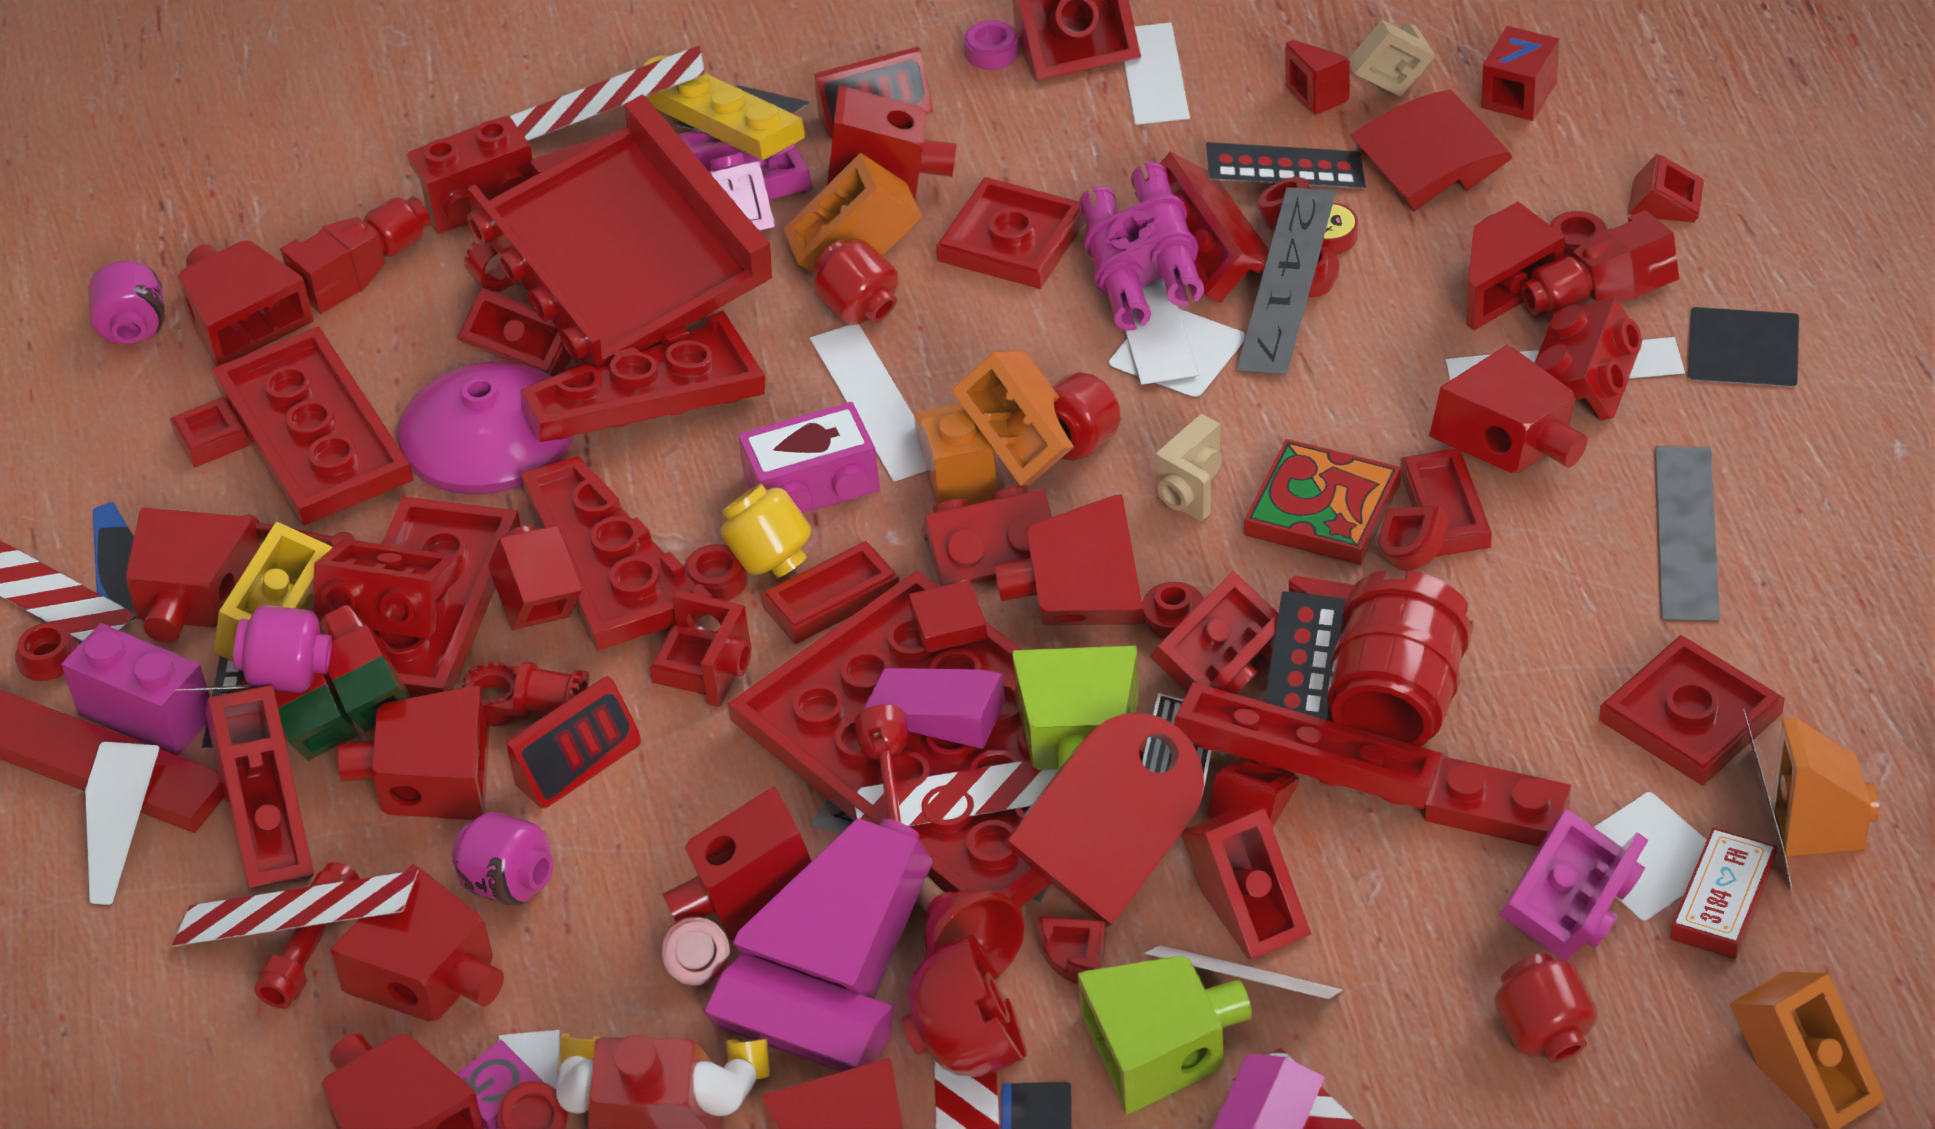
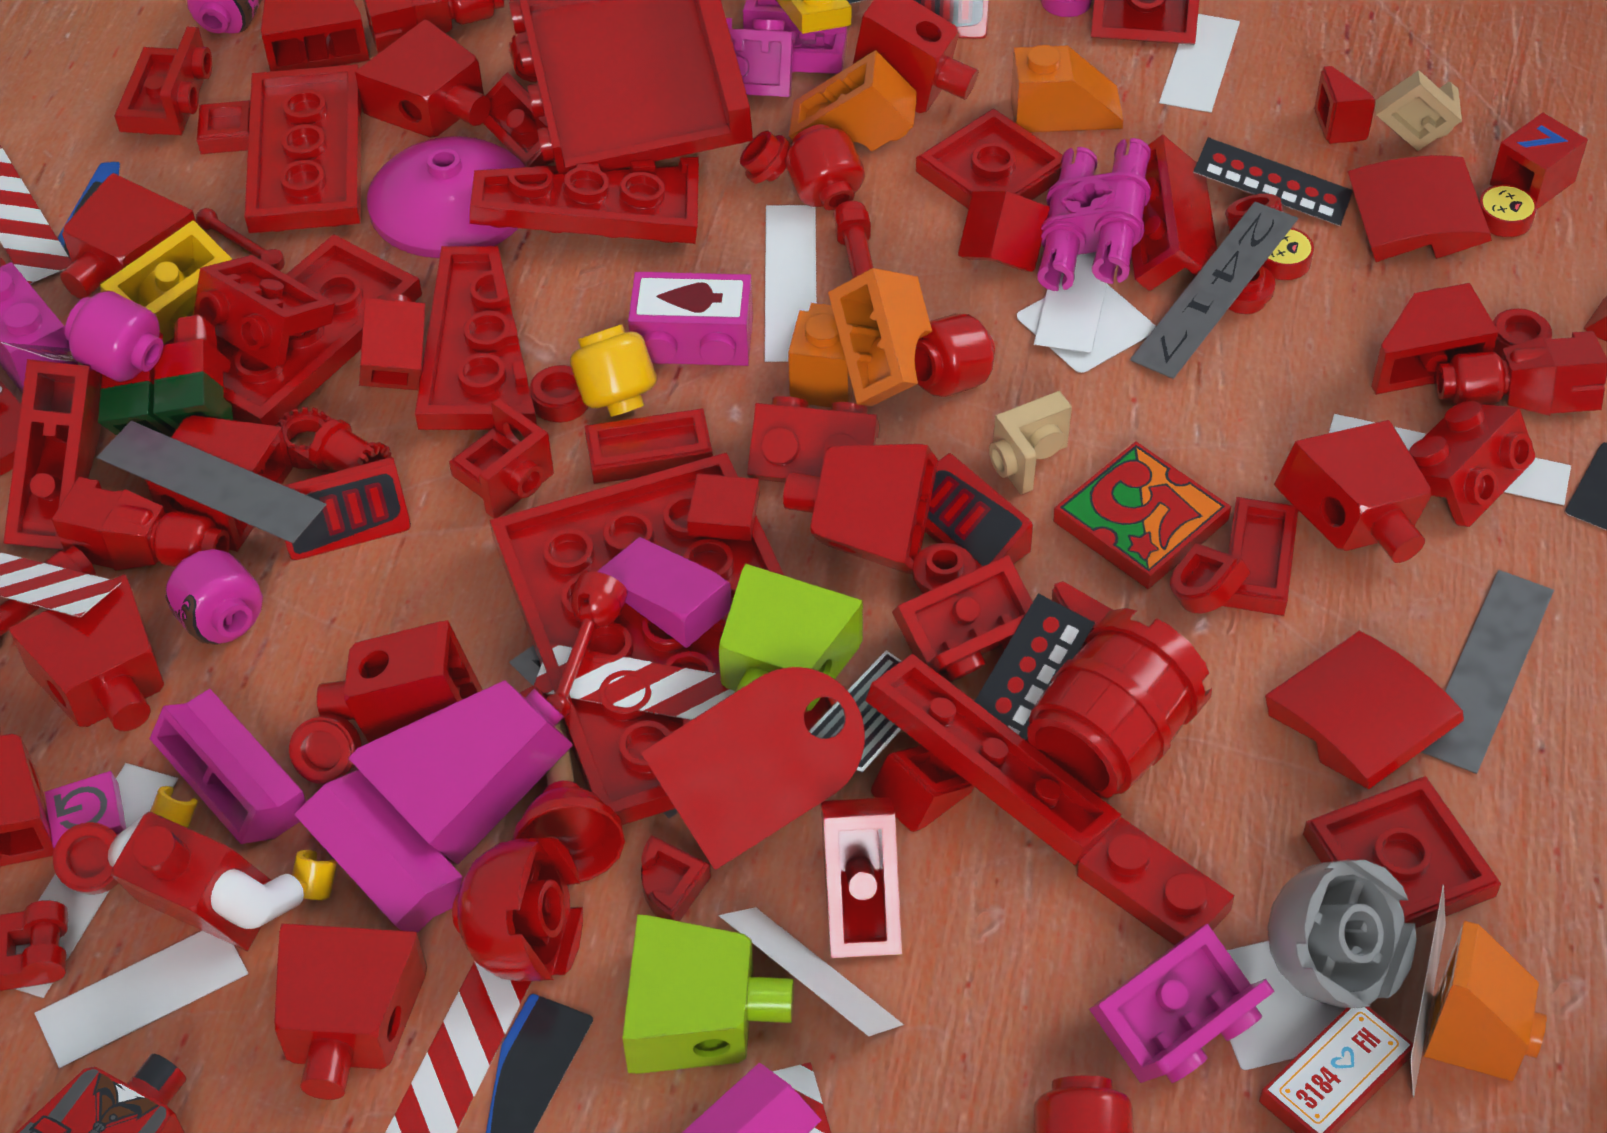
camera: 20 degrees right, 5 degrees up
(122, 412) = (165, 87): none -> red bracket
(380, 828) = (129, 530): none -> red piece
(401, 324) = (423, 83): none -> red torso
(442, 754) = (212, 481): none -> flat silver sticker
(609, 994) = (228, 768): none -> dark pink piece
(789, 290) = (765, 157): none -> red plate
(912, 331) = (854, 231): none -> red bar
(1042, 142) = (1061, 92): none -> orange slope
(1060, 287) = (1003, 229): none -> red panel
(1179, 550) = (975, 516): none -> slope
(1513, 125) = (1508, 210): none -> tile
(1602, 597) = (1364, 709): none -> red slope
(1678, 776) = (1342, 933): none -> light grey cylinder

